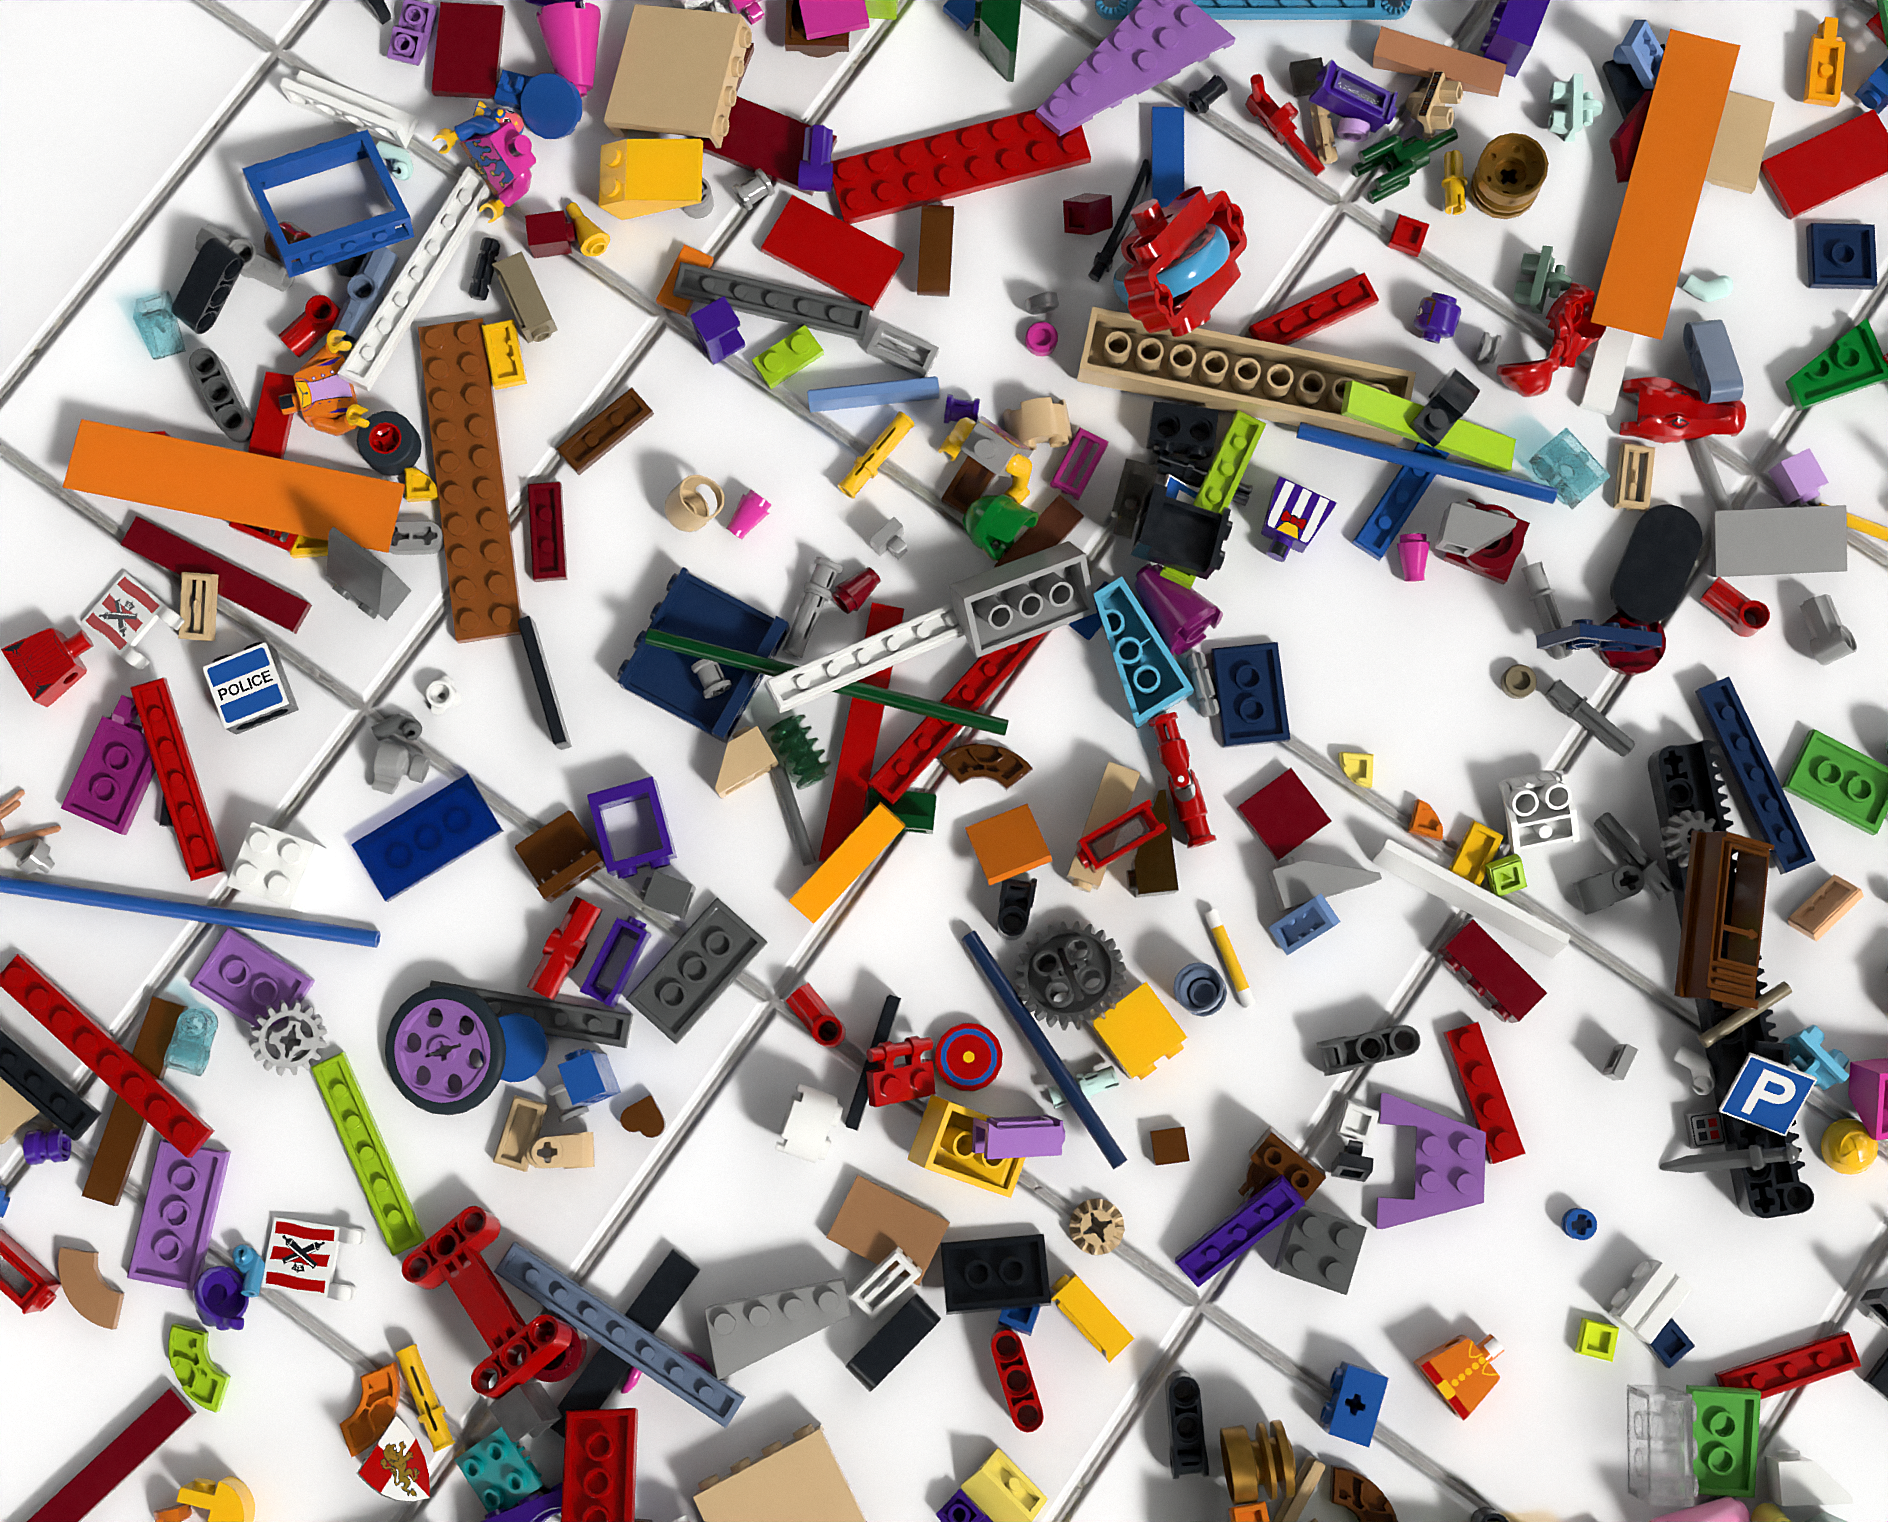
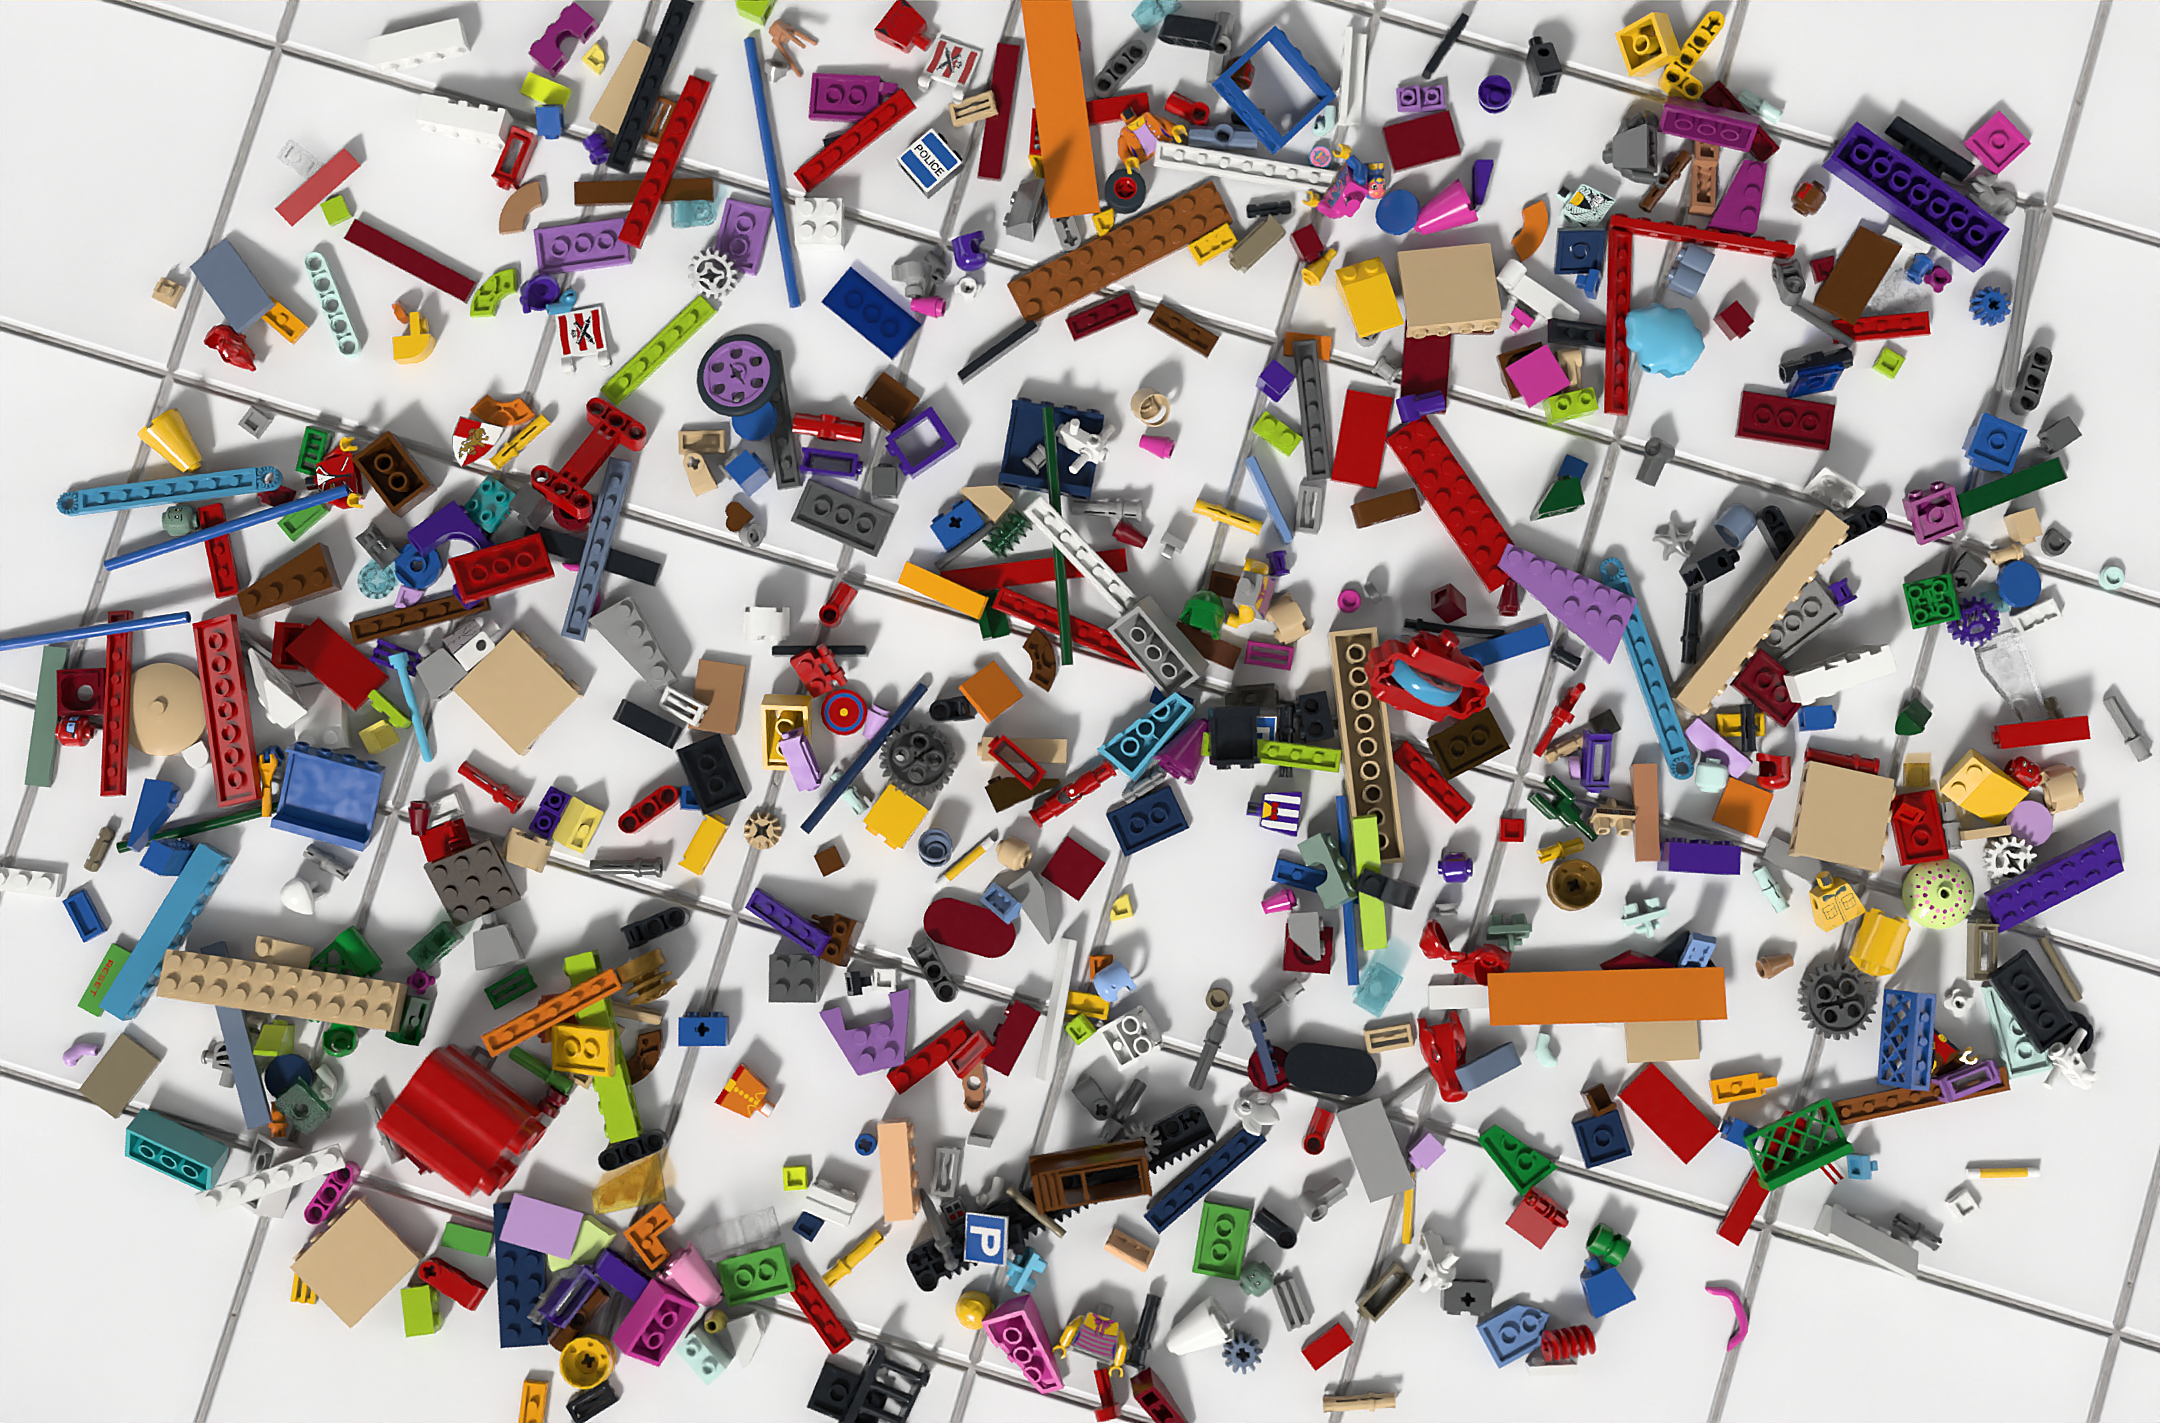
camera: 75 degrees right, 5 degrees up
(64, 1064) = (651, 138): none -> dark orange tile
(391, 678) = (968, 253): none -> dark purple helmet
(440, 181) = (1320, 157): none -> tile
(446, 754) = (931, 306): none -> dark pink cone
(511, 89) = (1404, 181): blue tile -> none
(677, 1106) = (751, 535): none -> light grey tile
(719, 600) = (1088, 446): none -> white piece
(761, 795) = (951, 537): none -> blue brick
(994, 1016) = (875, 720): none -> lavender cone
(1089, 1420) = (637, 867): none -> dark grey pin
(1108, 137) = (1509, 600): none -> dark red cone
(1239, 886) = (1013, 853): none -> tan head
(1280, 251) = (1467, 744): none -> dark brown plate
(1321, 983) = (968, 928): none -> dark red tile
(1423, 468) = (1339, 886): none -> sand green arch
(1456, 808) = (1111, 980): none -> light blue helmet
(1499, 1035) = (970, 1054): none -> red tile
(1557, 1052) = (974, 1098): none -> nougat piece
(1620, 1112) = (943, 1192): none -> light grey tile
(1637, 1189) = (897, 1169): none -> light nougat brick
(1690, 674) = (1259, 1113): none -> white plate
(1736, 1299) = (856, 1255): none -> yellow pin
(1794, 243) = (1597, 1100): none -> reddish brown panel
(1849, 705) = (1273, 1227): none -> black piece

